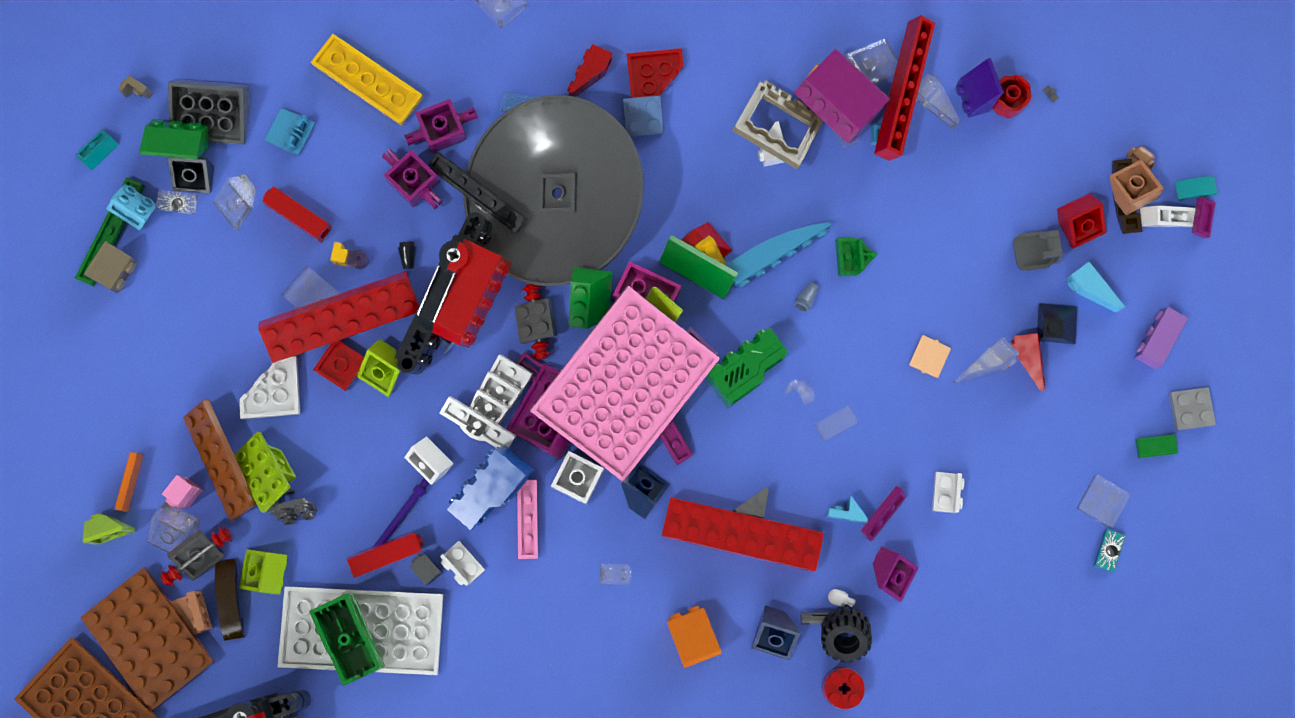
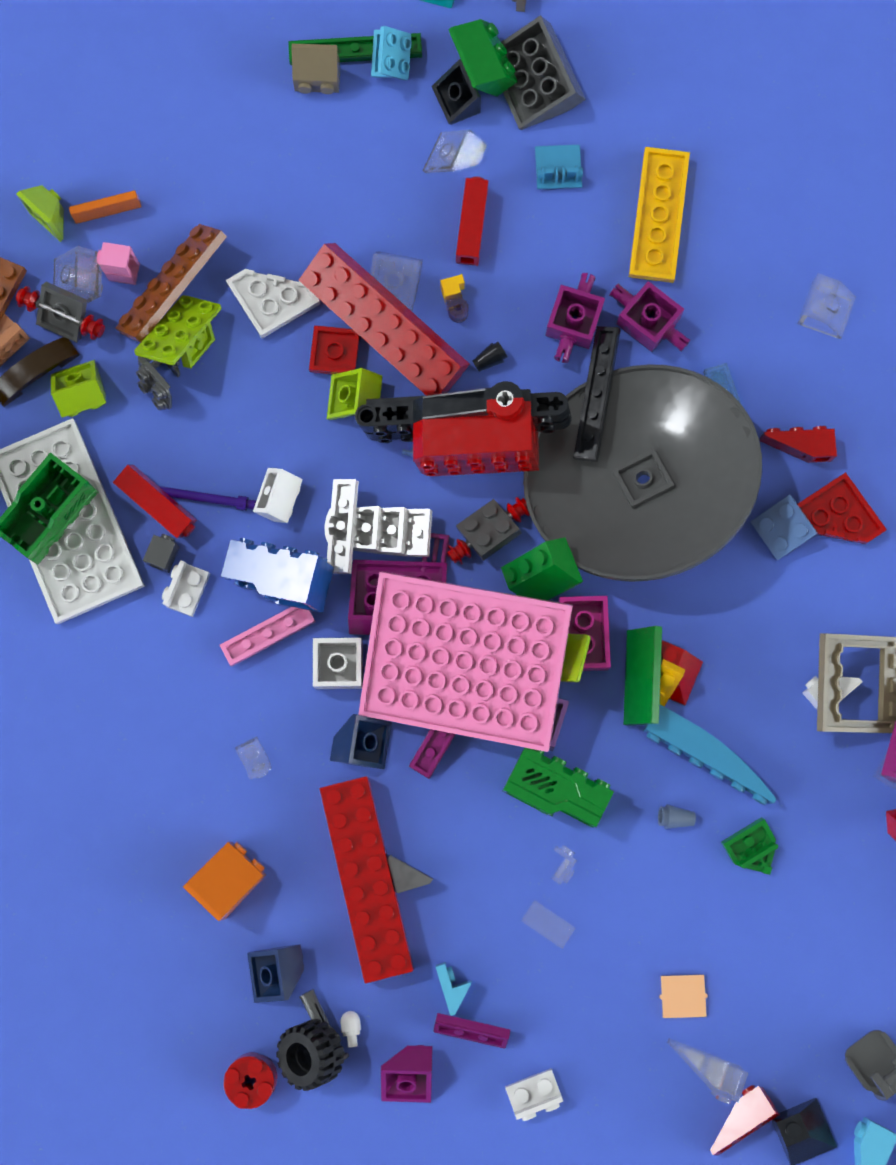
camera: 70 degrees right, 0 degrees up
(176, 202) = (421, 96): clear tile -> none

